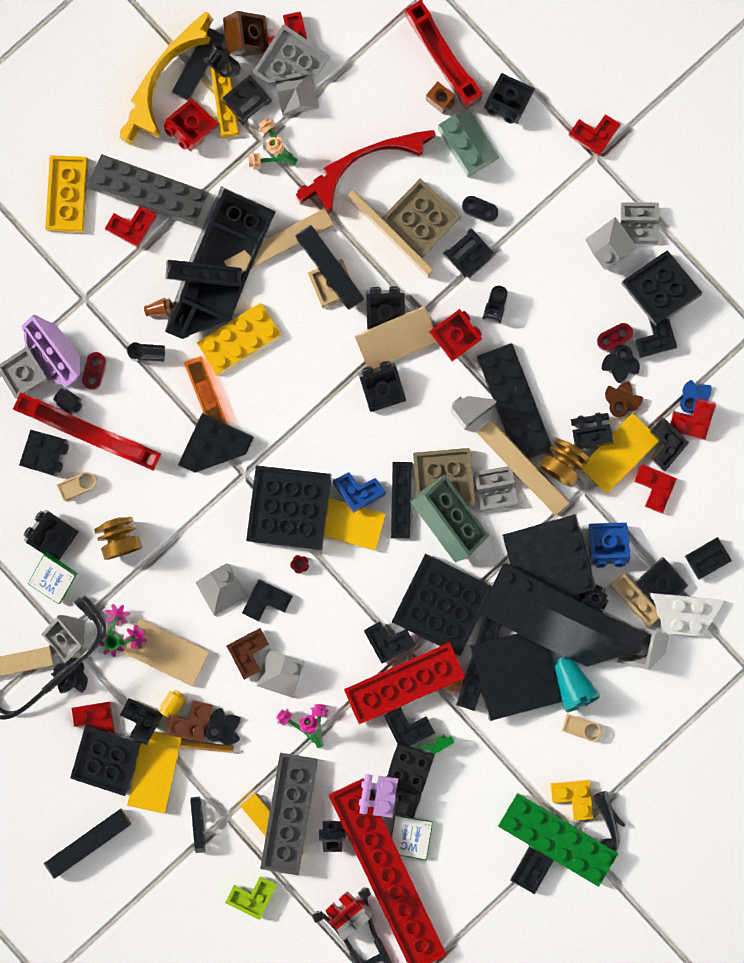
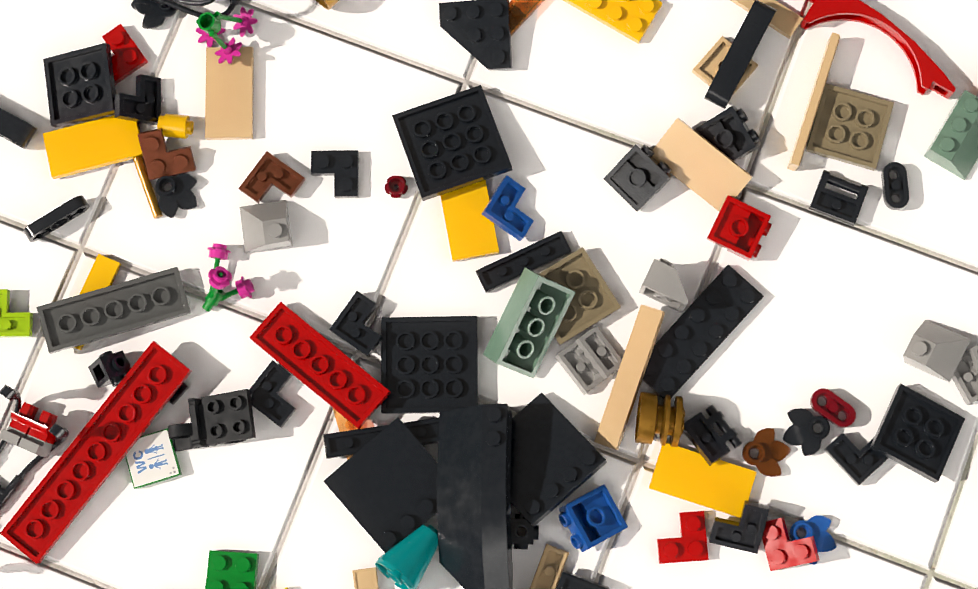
camera: 70 degrees right, 5 degrees down
(220, 589) = (327, 116): light grey slope -> none
(384, 796) = (180, 403): lavender plate -> none
(442, 742) = (274, 440): green plate -> none
(495, 306) = (792, 256): black piece -> none

